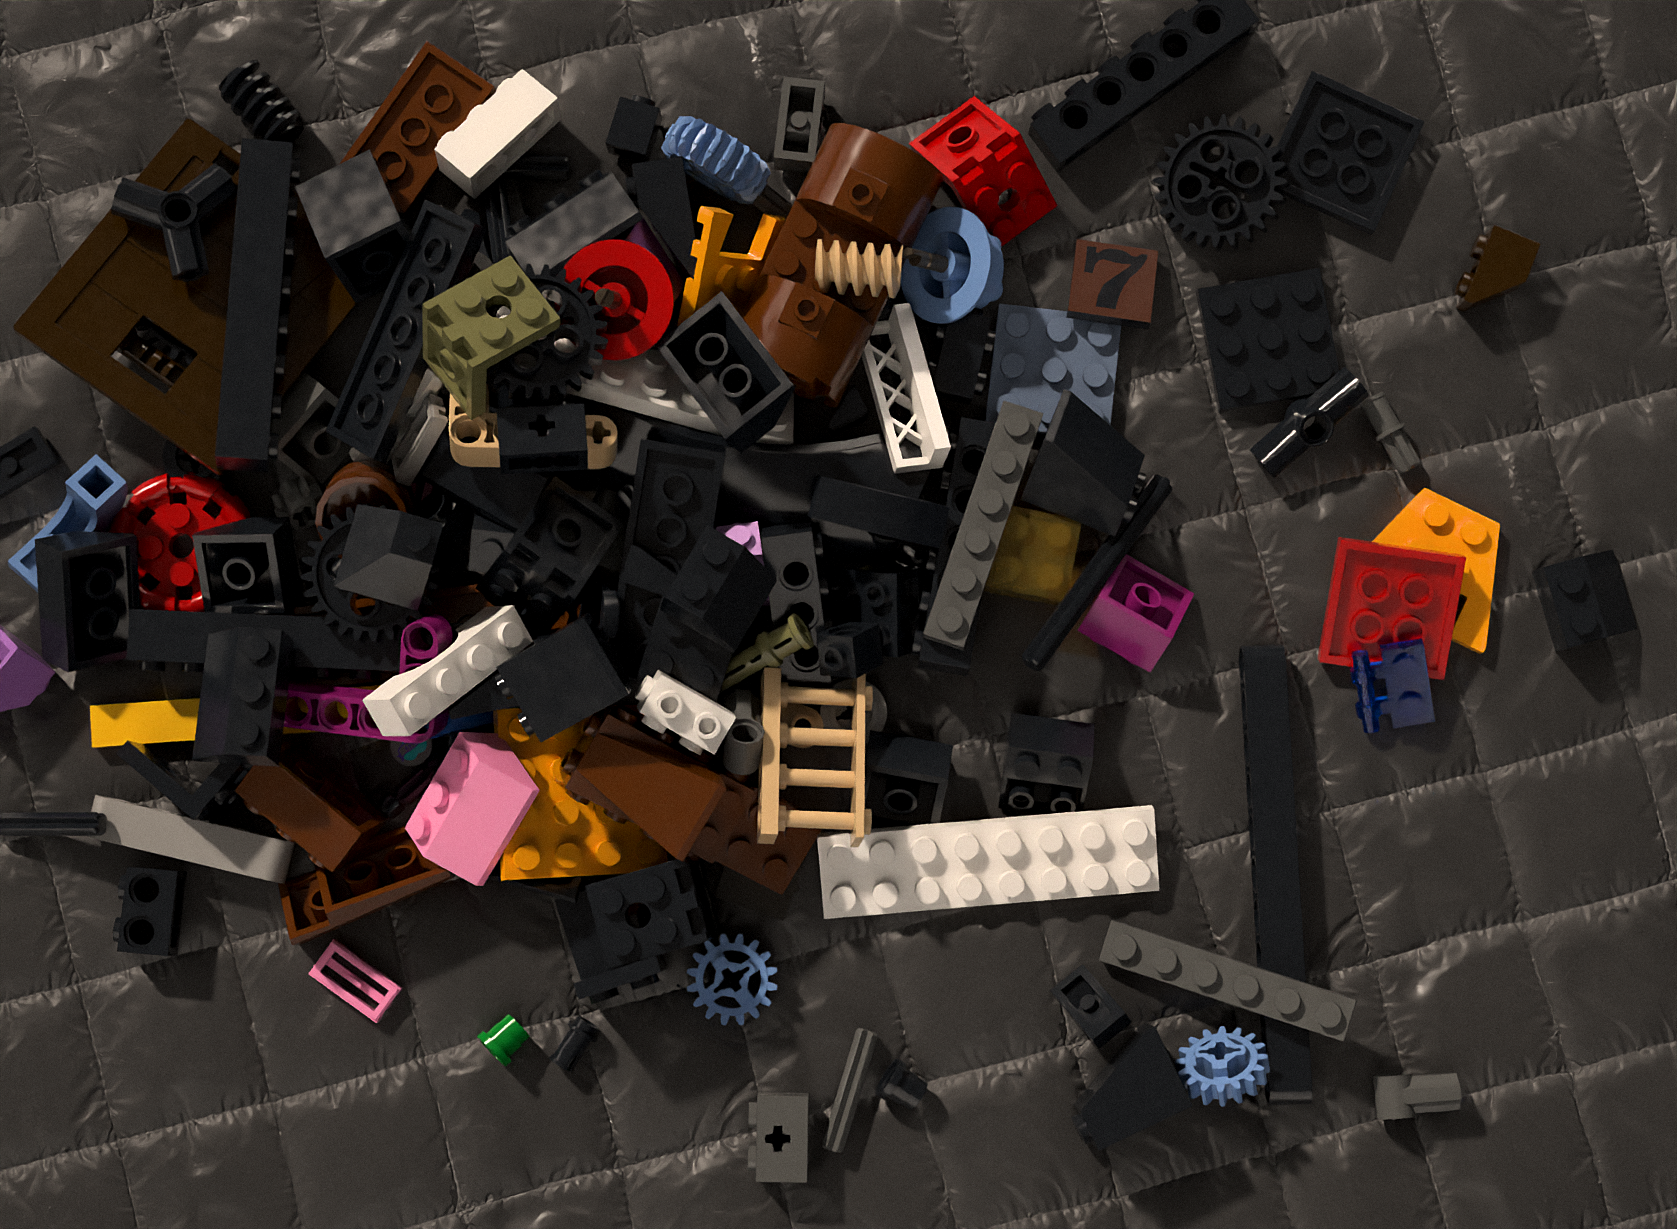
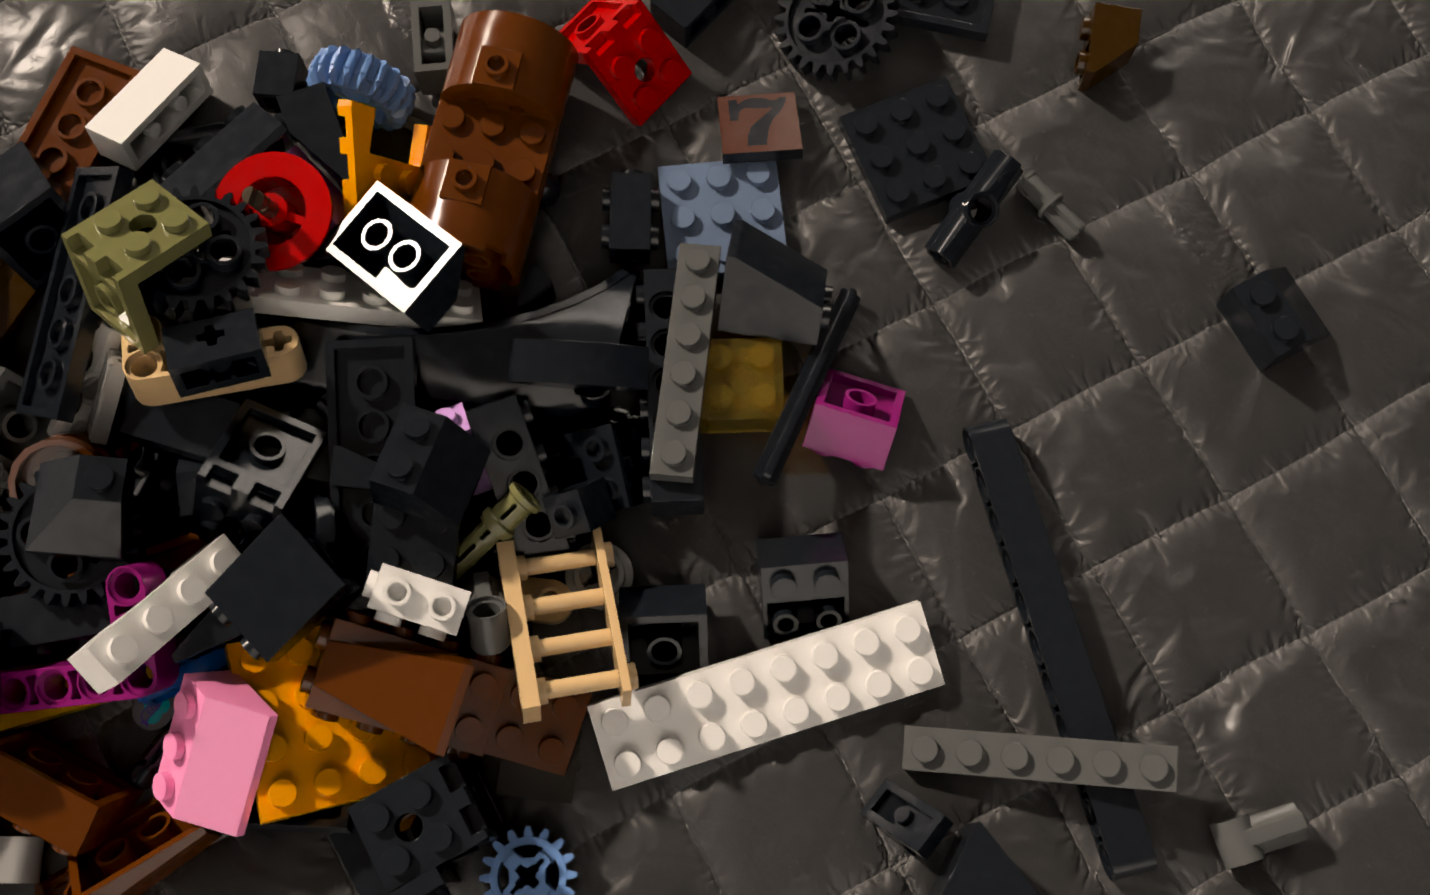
camera: 15 degrees left, 10 degrees down
(858, 269) = (510, 138): tan piece -> none
(918, 398) = (598, 255): white fence -> none
(952, 266) = (603, 134): medium blue piece -> none
(1222, 1066) = (1058, 849): medium blue gear -> none
(1390, 597) = (1098, 360): red plate -> none
(1406, 685) = (1131, 427): clear blue plate -> none
(1446, 526) = (1128, 298): light orange wing -> none

